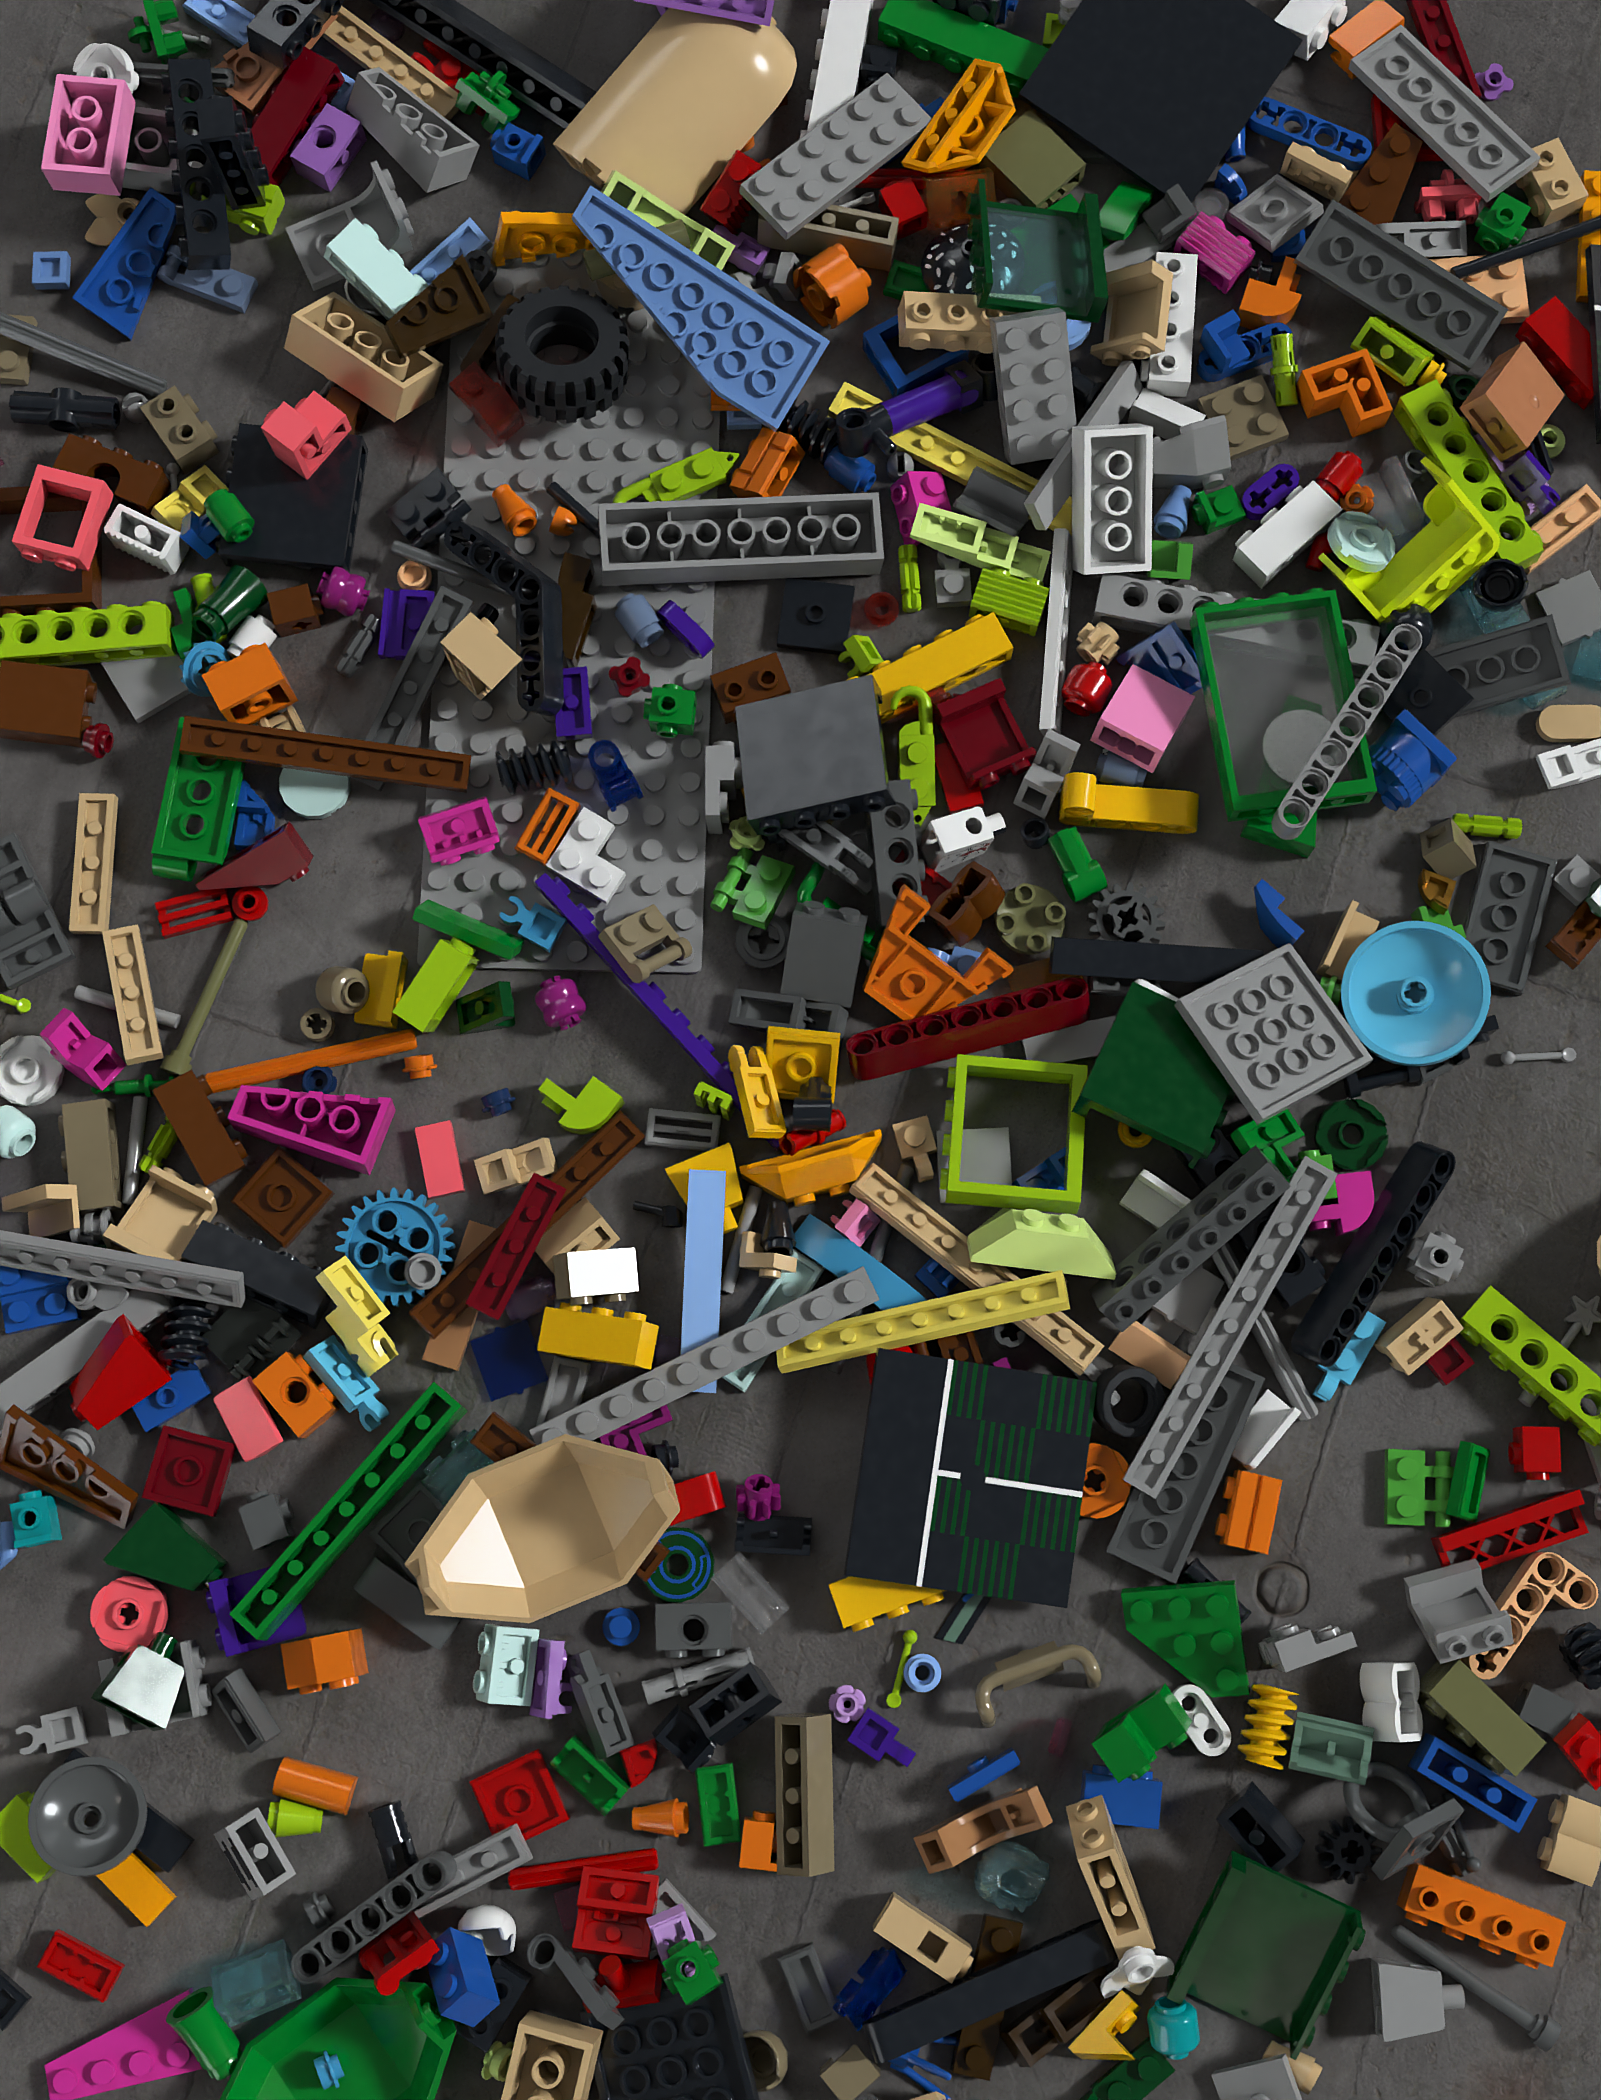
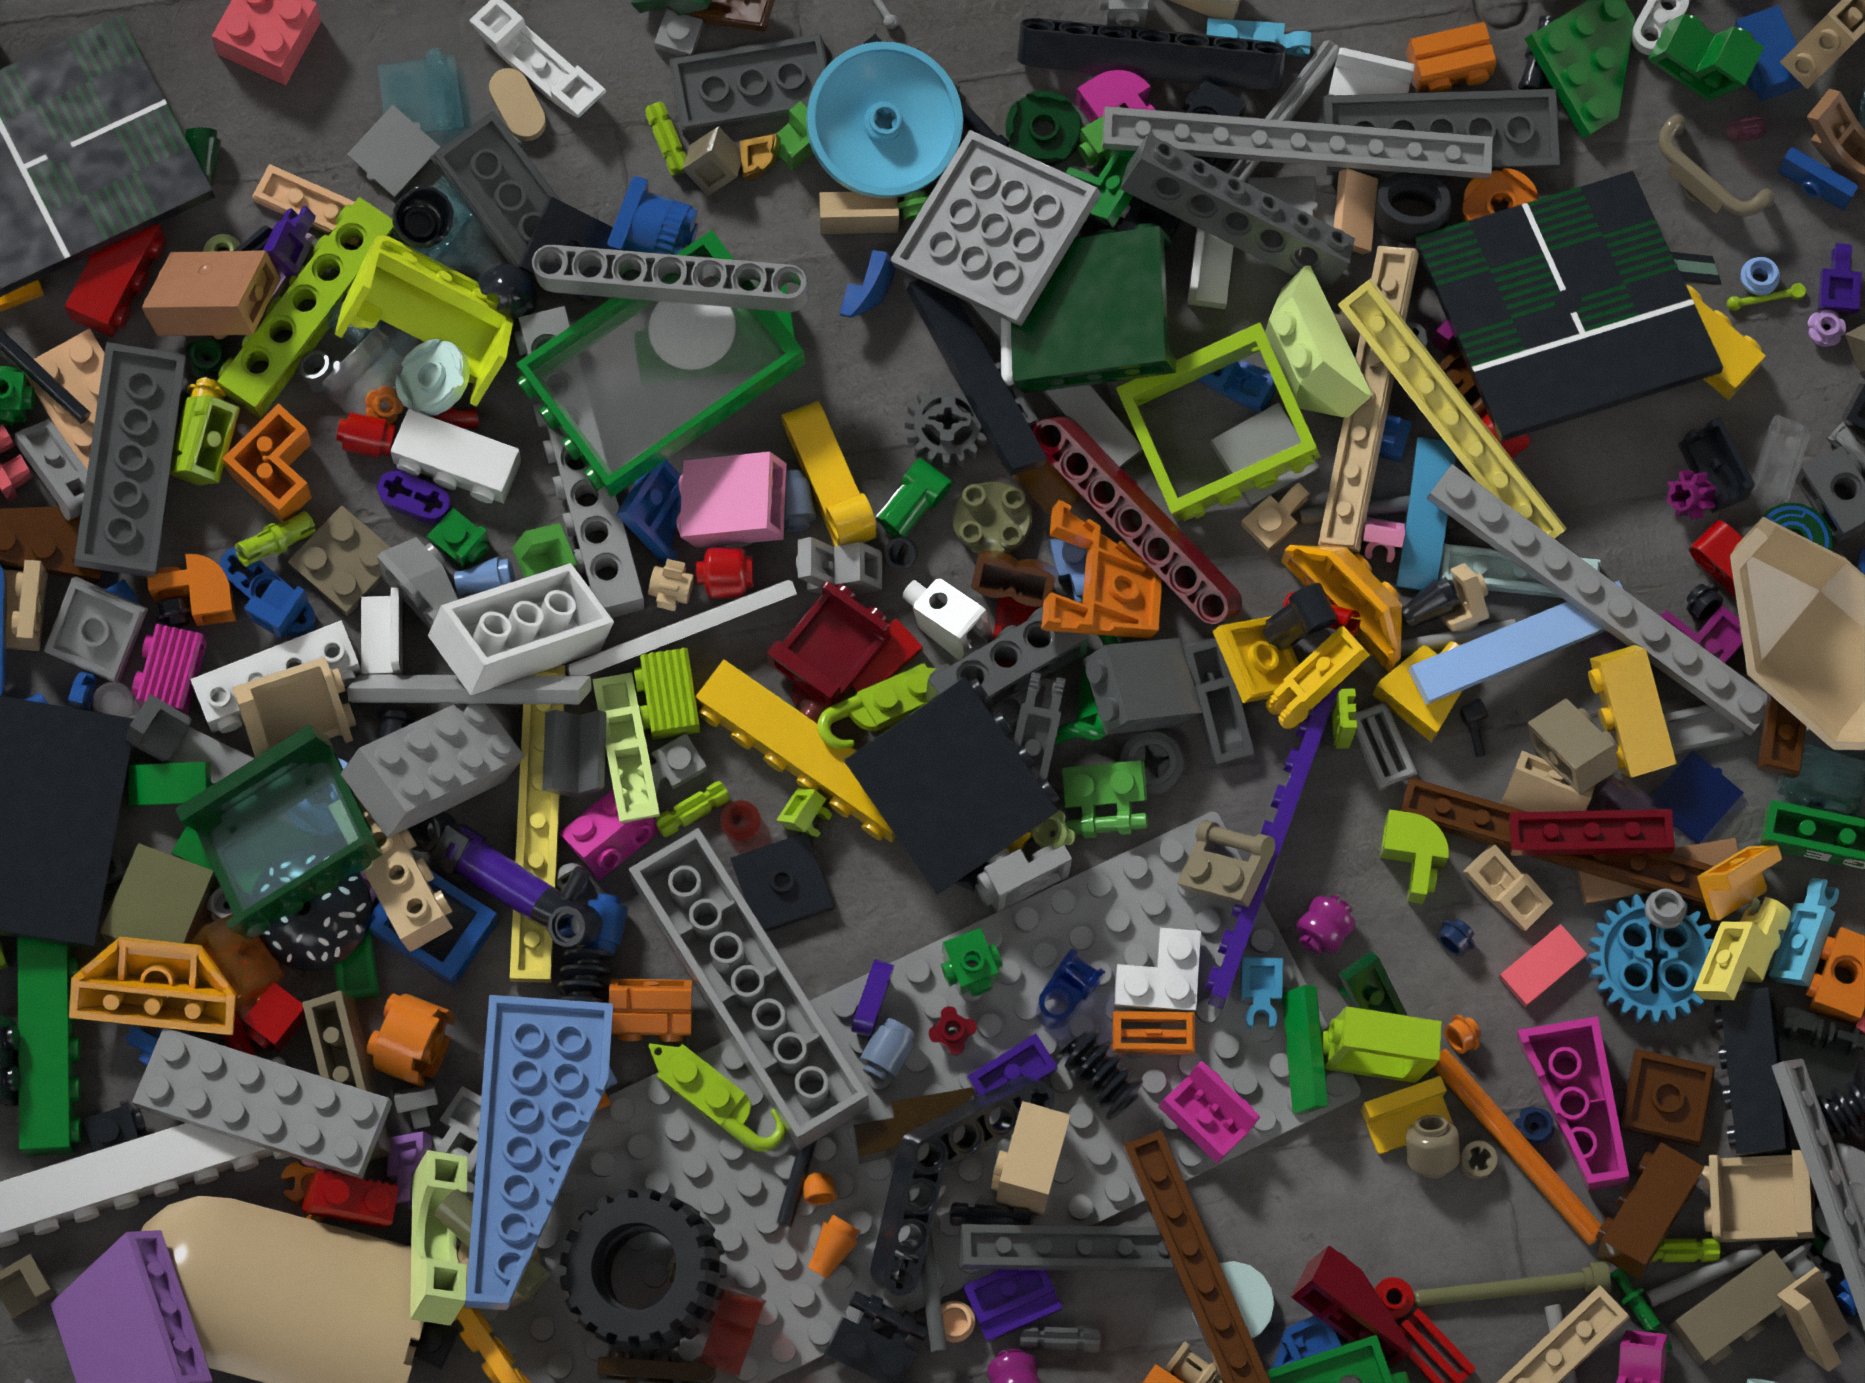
camera: 125 degrees left, 5 degrees down
(417, 1346) = (1737, 879): none -> light orange panel
(748, 683) = (898, 904): reddish brown brick -> none

